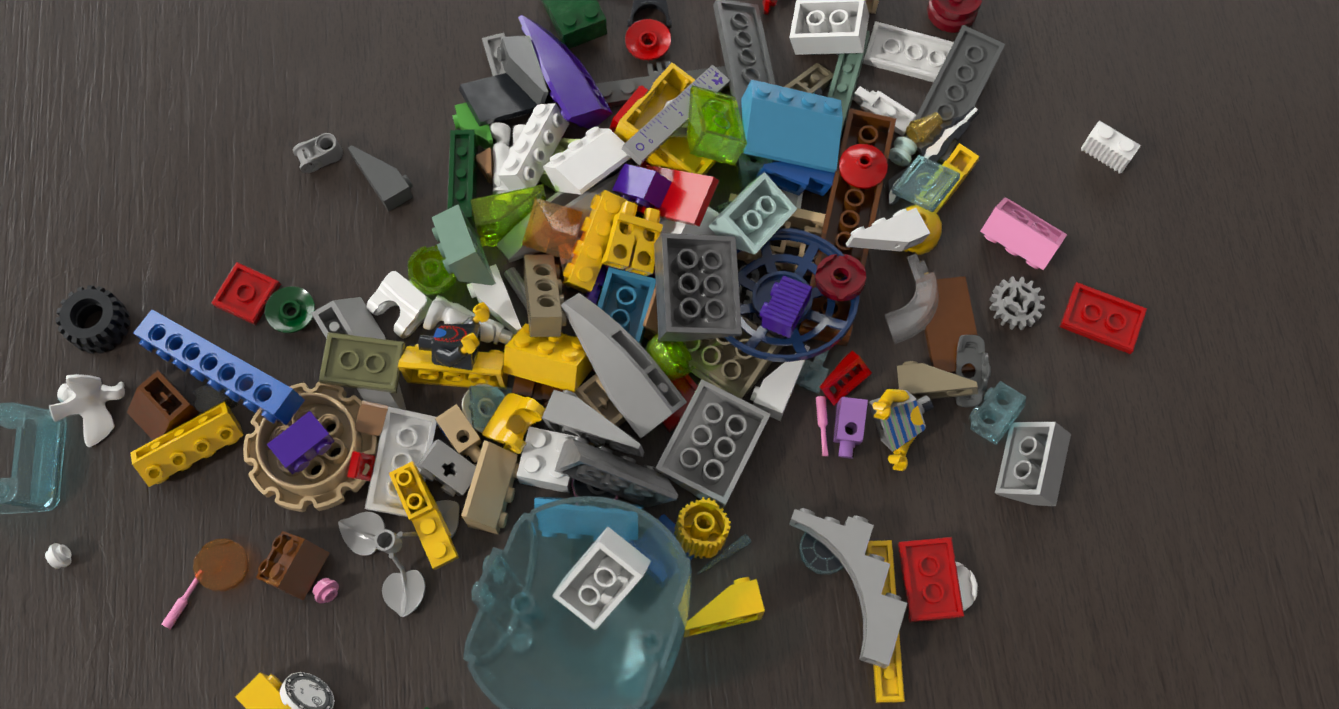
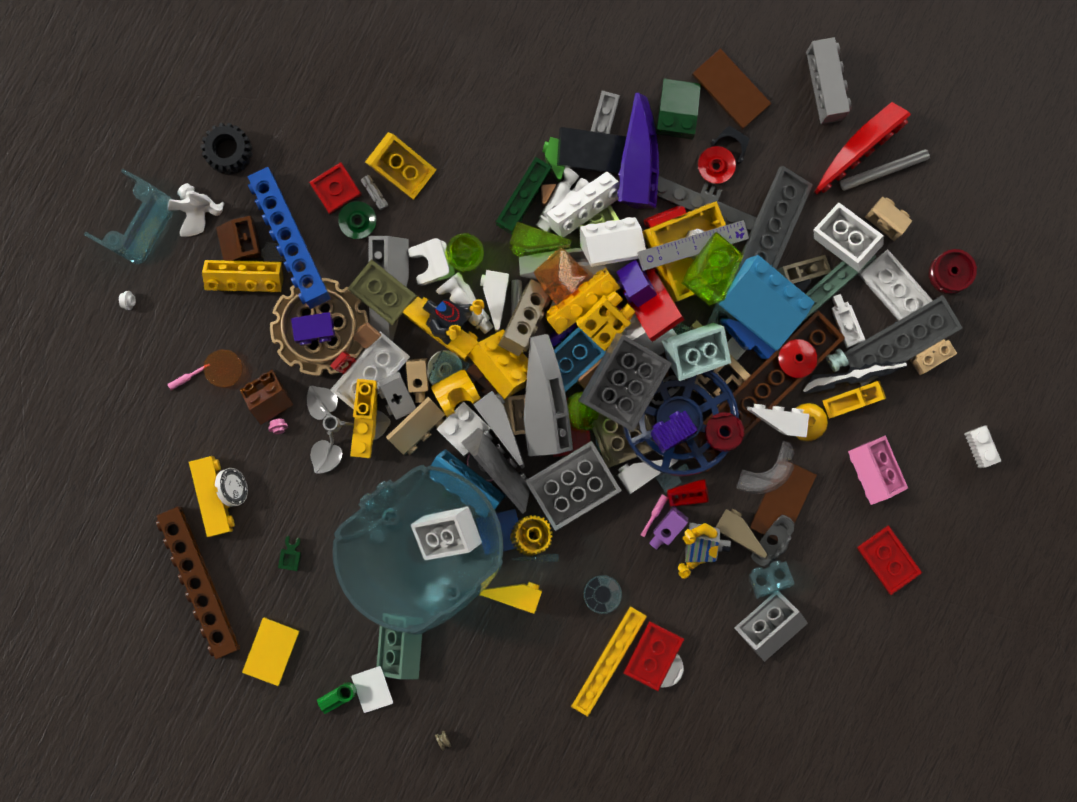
camera: 30 degrees right, 15 degrees up
(293, 272) = (374, 192): none -> light grey axle
(306, 226) = (400, 165): none -> yellow slope
(316, 152) = (434, 111): light grey piece -> none
(383, 178) = (472, 164): dark grey slope -> none
(461, 247) = (491, 252): sand green slope -> none
(523, 66) = (614, 136): slope -> none
(880, 612) = (617, 603): light grey arch -> none
(921, 128) = (860, 354): clear yellow cone -> none
(925, 183) = (833, 396): clear light blue tile -> none
(995, 90) = (933, 356): none -> tan window
(1024, 298) = (841, 506): light grey gear -> none

